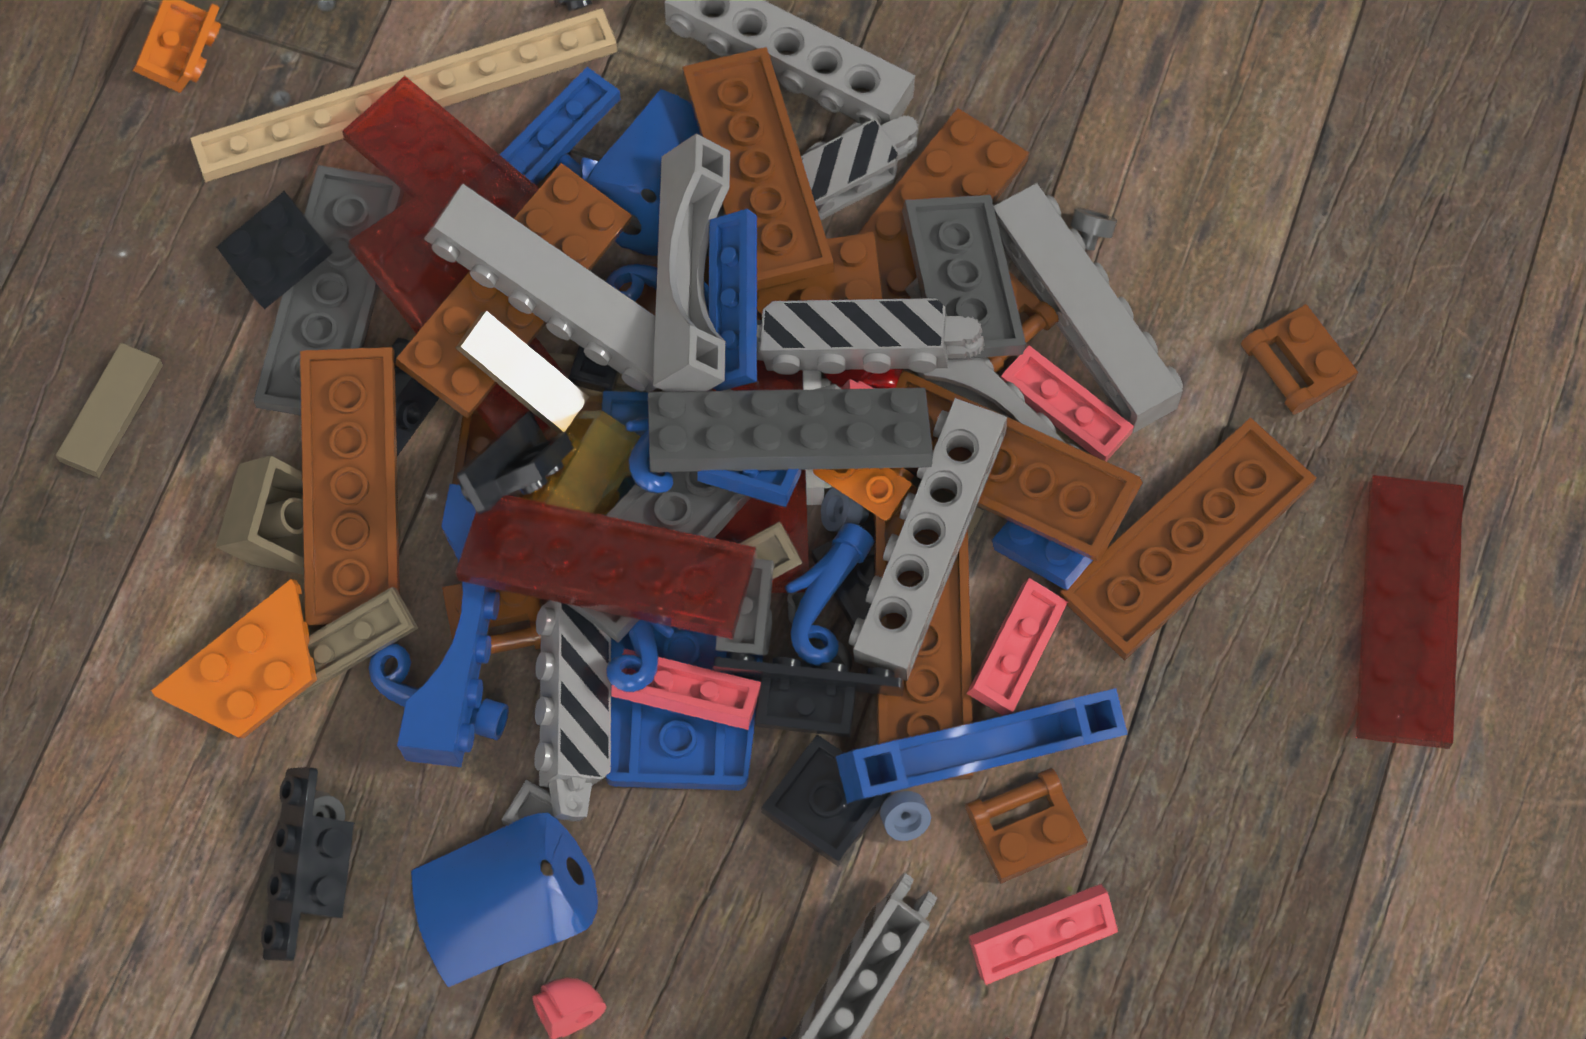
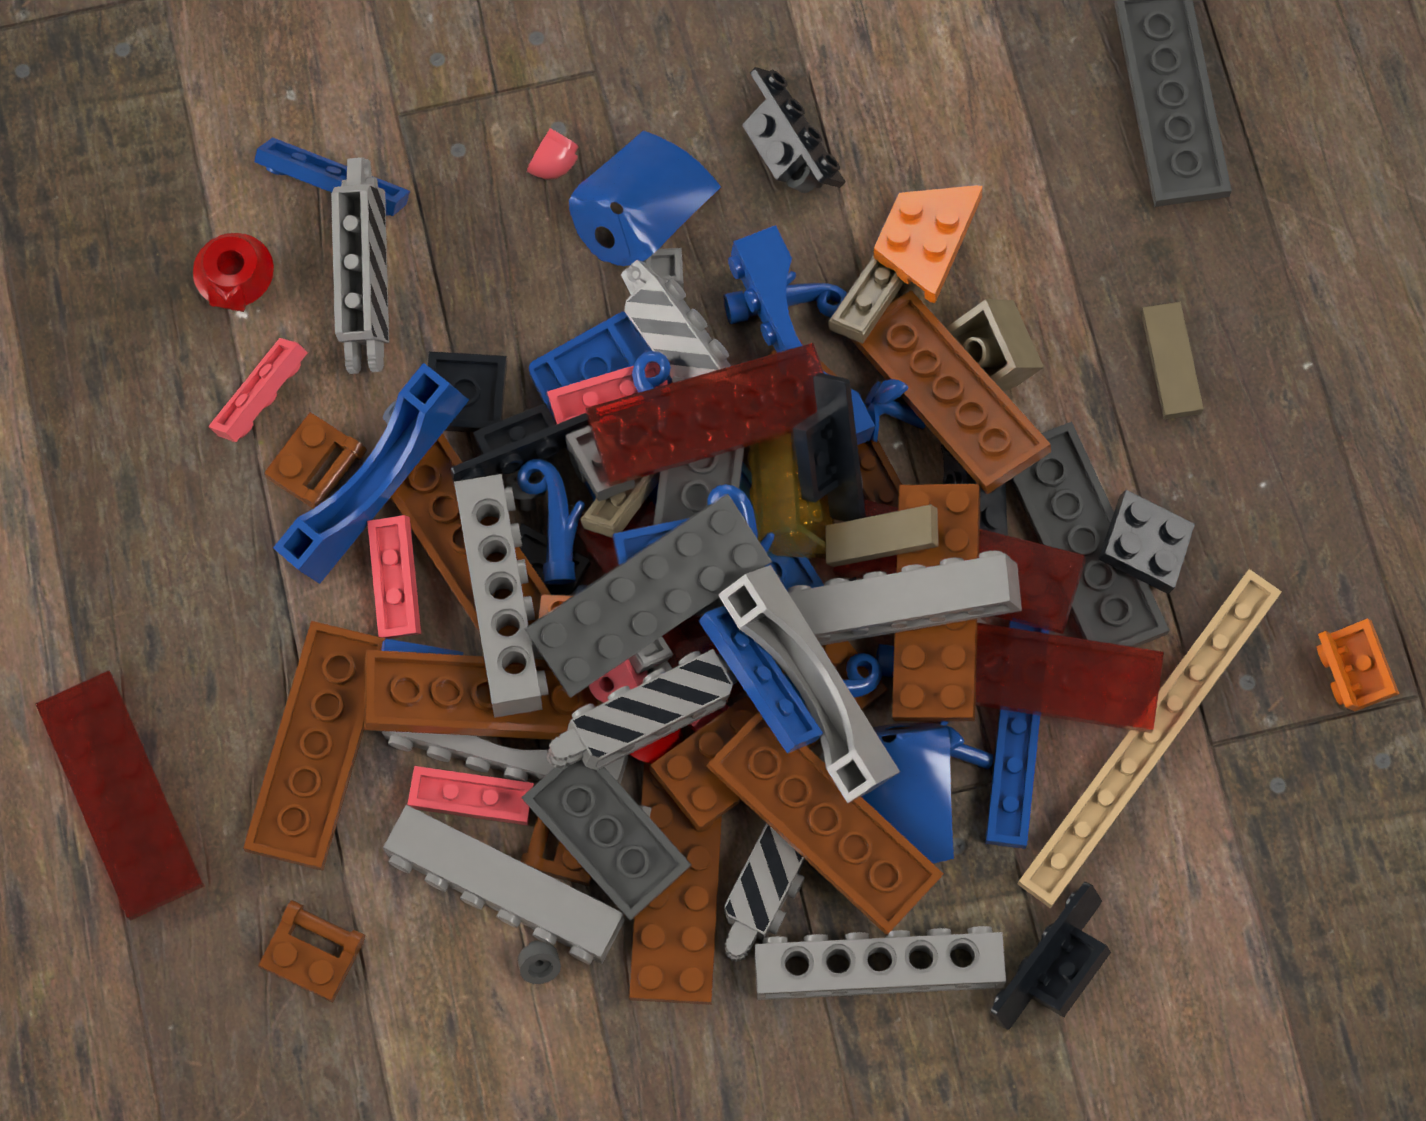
camera: 150 degrees right, 5 degrees up
(413, 518) = (881, 401): none -> blue plant

